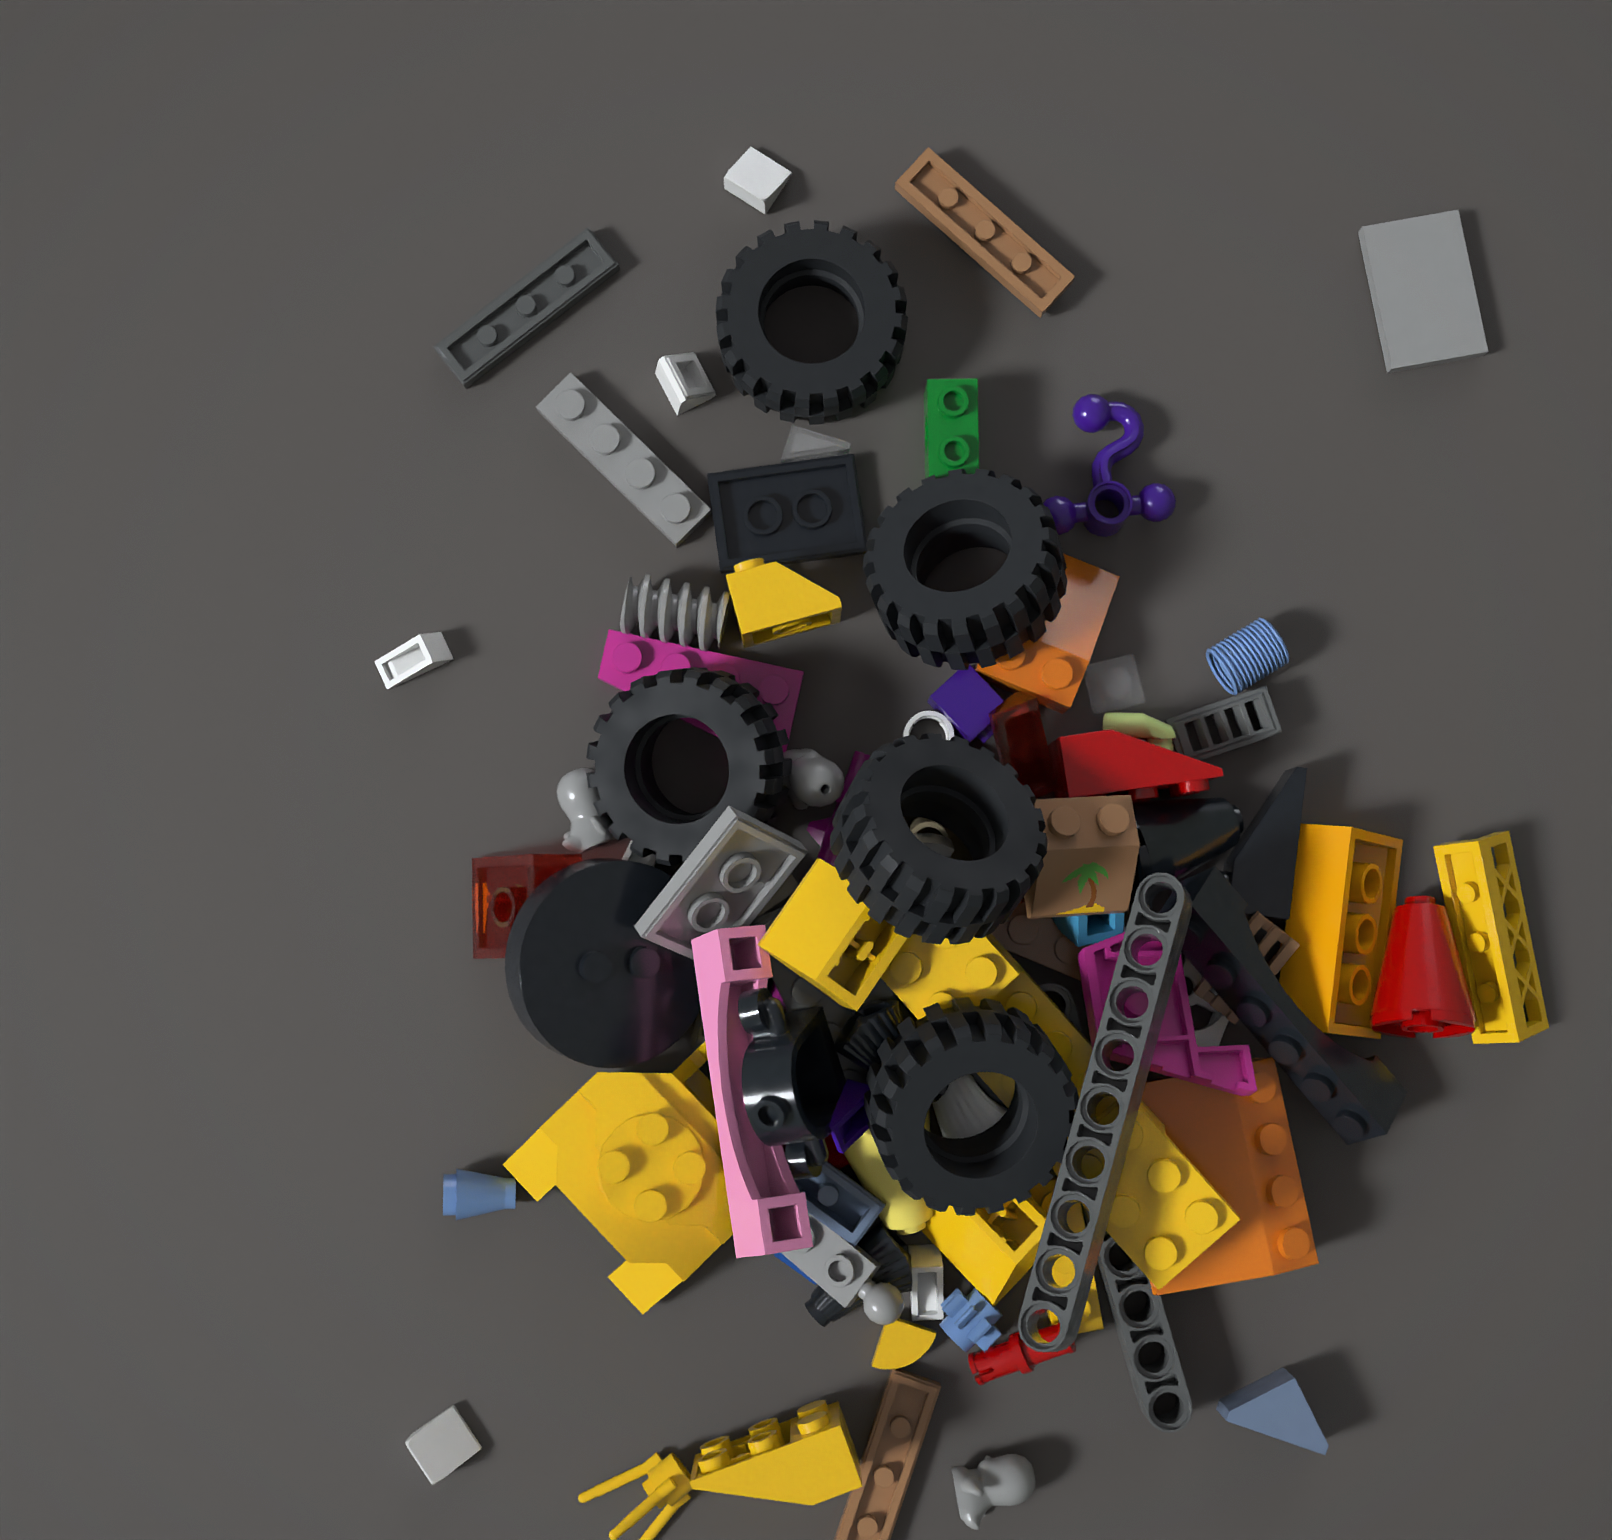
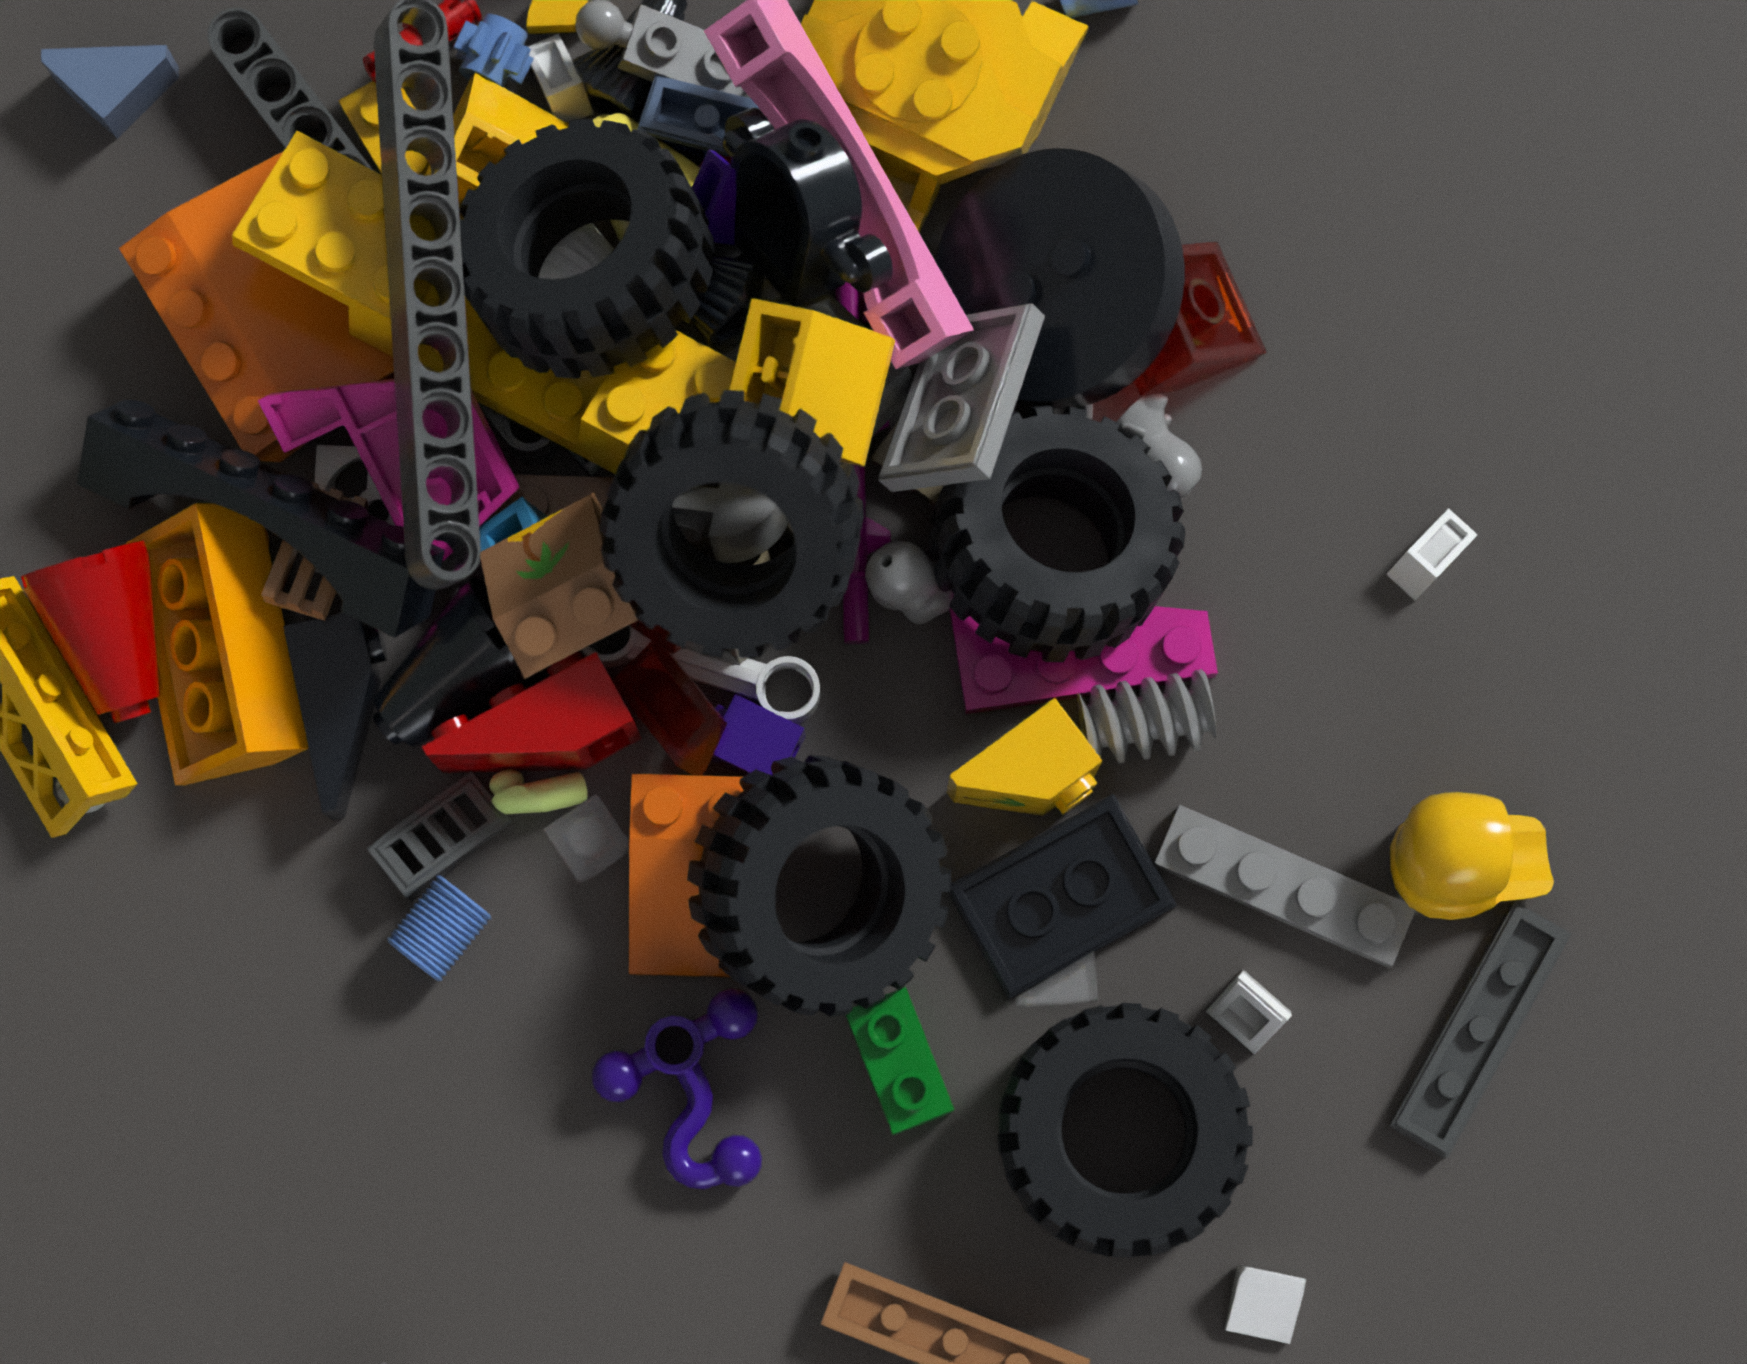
camera: 160 degrees right, 5 degrees down
(484, 425) = (1467, 855): none -> yellow piece

